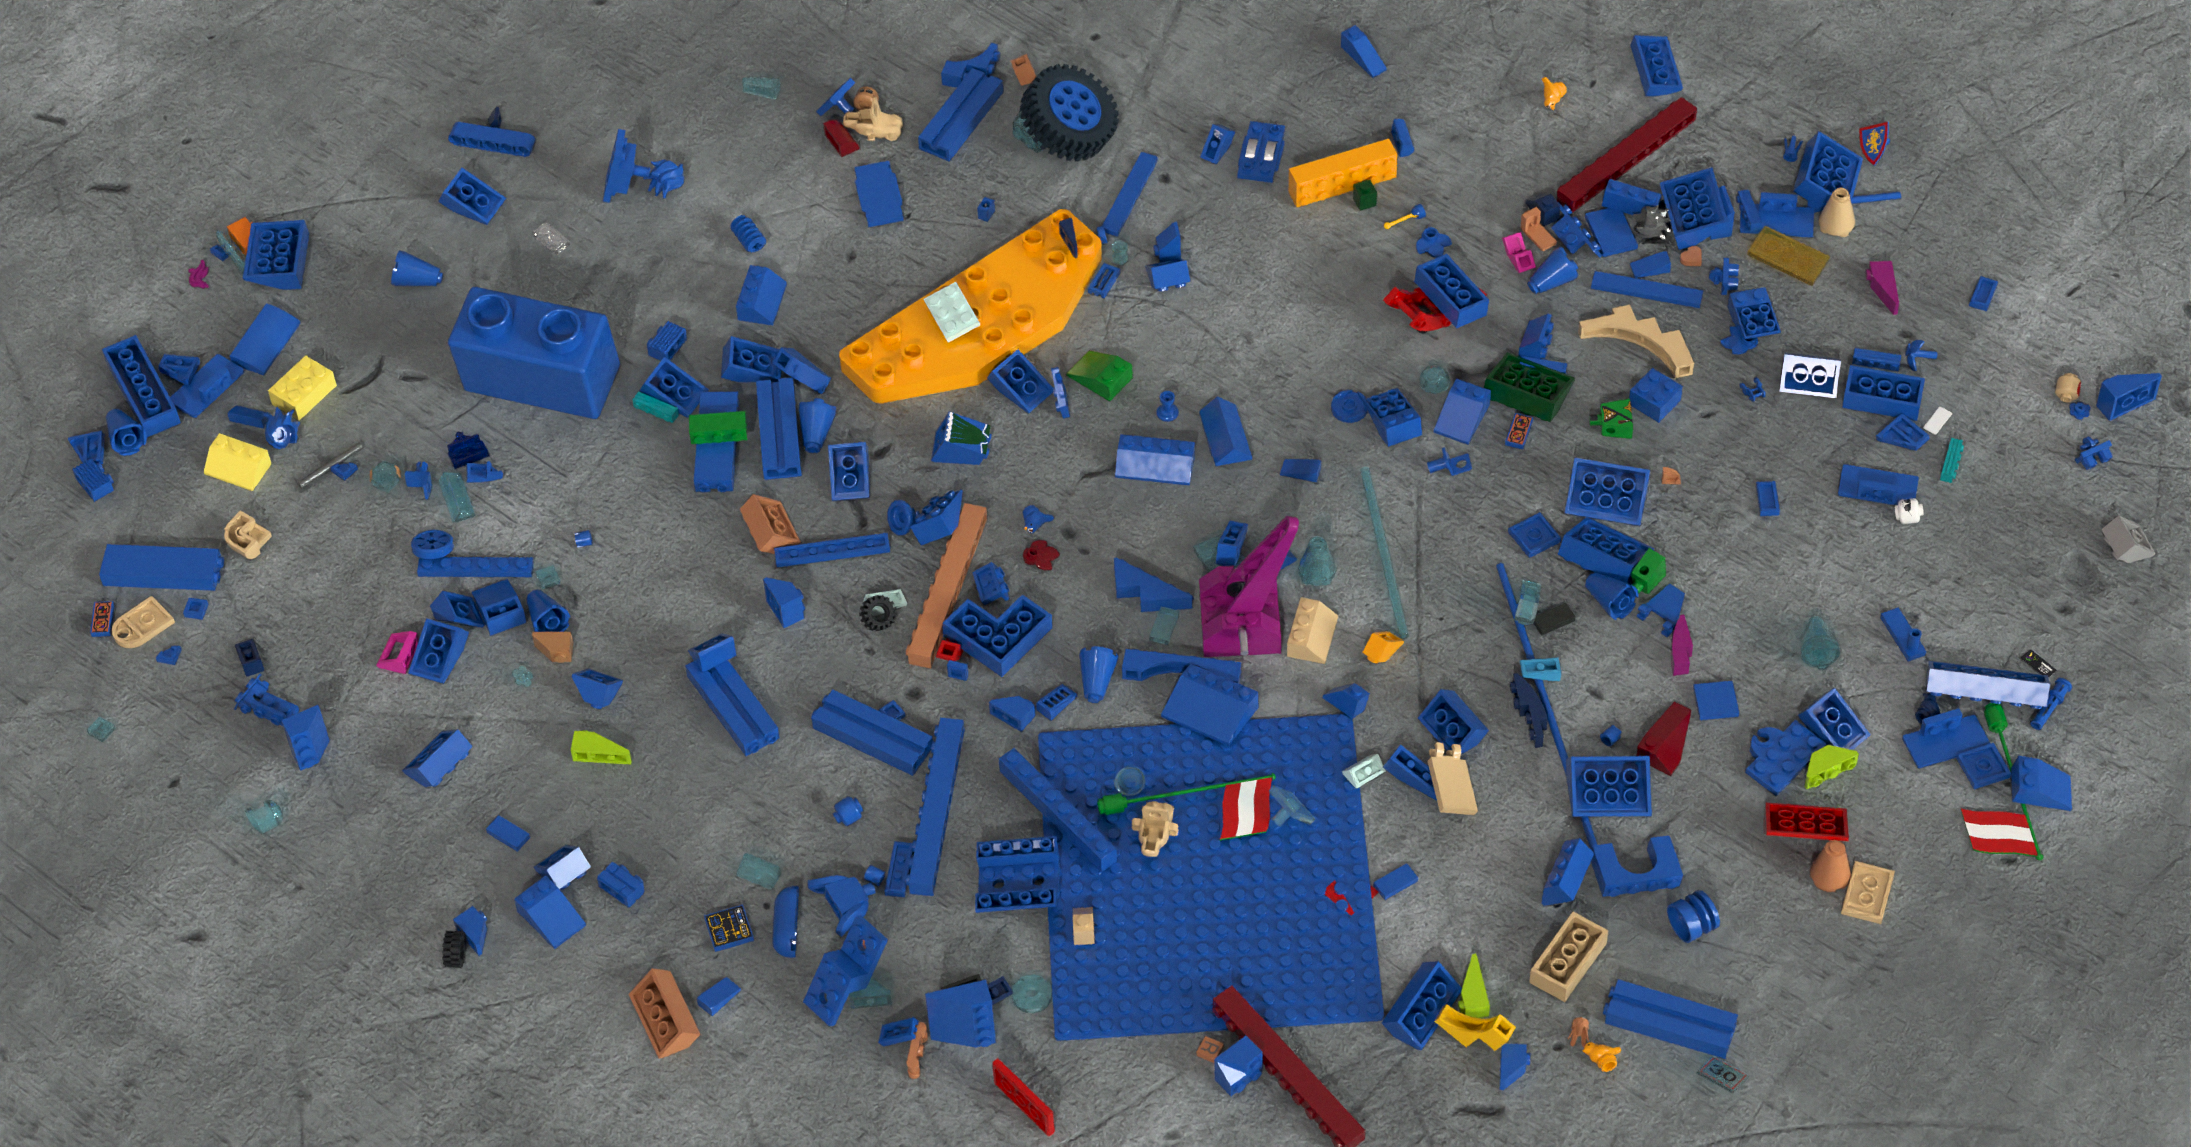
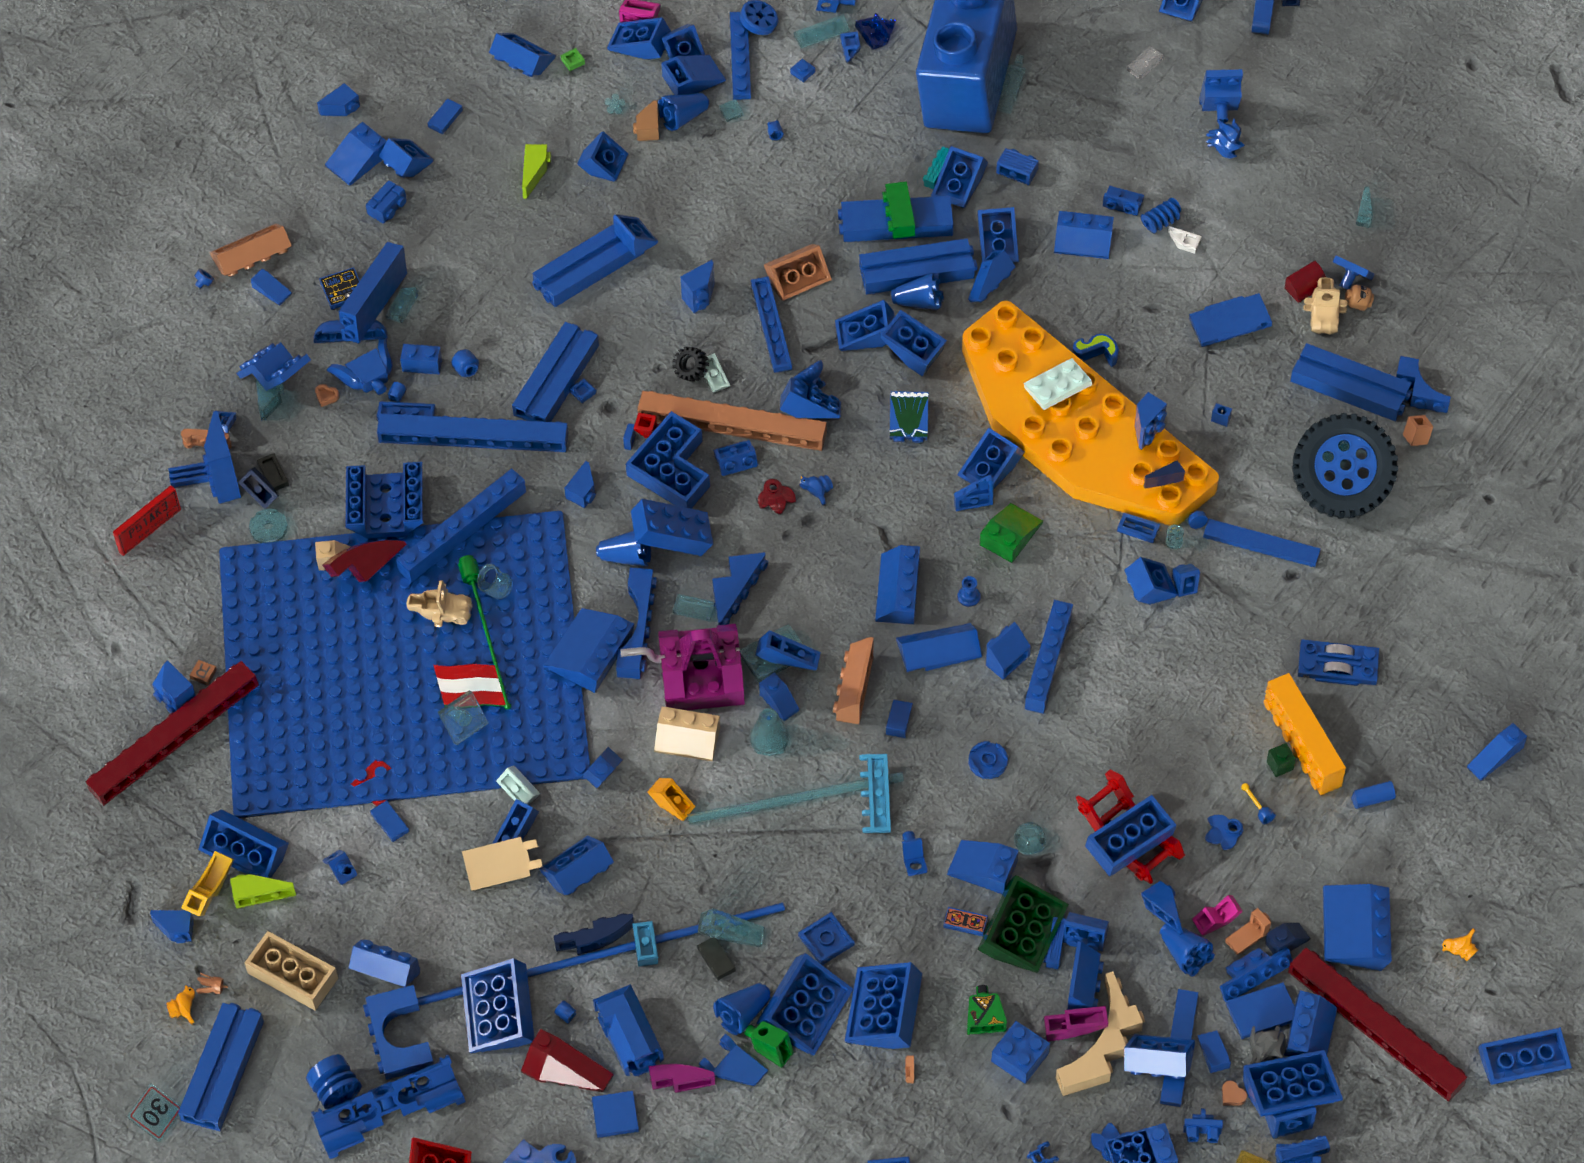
camera: 85 degrees right, 5 degrees up
(454, 712) = (572, 59): none -> bright green plate
(454, 949) = (314, 87): black tyre -> none
(506, 514) = (802, 70): none -> blue plate
(698, 1058) = (203, 278): none -> blue tile
(720, 266) = (1123, 200): none -> blue bracket
(756, 881) = (373, 292): none -> blue brick
(775, 223) = (1185, 240): none -> white tile
(837, 850) = (421, 359): none -> blue brick
(881, 426) = (913, 342): none -> blue slope
(896, 288) = (1096, 346): none -> blue animal
(955, 1055) = (188, 471): none -> blue tile
(1007, 243) = (1149, 419): none -> blue slope
(1050, 713) = (591, 511): blue slope -> none
(1084, 624) = (671, 527): none -> blue brick
(1094, 891) = (363, 559): none -> dark red slope
(1217, 143) = (1341, 617): blue slope -> none
(1239, 380) = (1007, 651): none -> blue slope
(1264, 492) = (855, 681): none -> nougat slope
(1276, 357) = (1048, 656): none -> blue arch
(1387, 483) = (878, 793): none -> dark azure hinge
(1393, 417) = (970, 797): blue slope -> none
(1448, 918) = (341, 866): none -> blue bracket
(1513, 281) = (1161, 902): none -> blue slope
(1535, 153) = (1357, 925): none -> blue slope
(1586, 347) = (1084, 978): none -> blue slope
(1628, 354) = (1075, 1023): none -> magenta slope
(1637, 680) = (628, 1030): none -> blue brick
(1661, 295) = (1158, 1056): none -> slope
(1694, 844) = (436, 1093): none -> blue piece

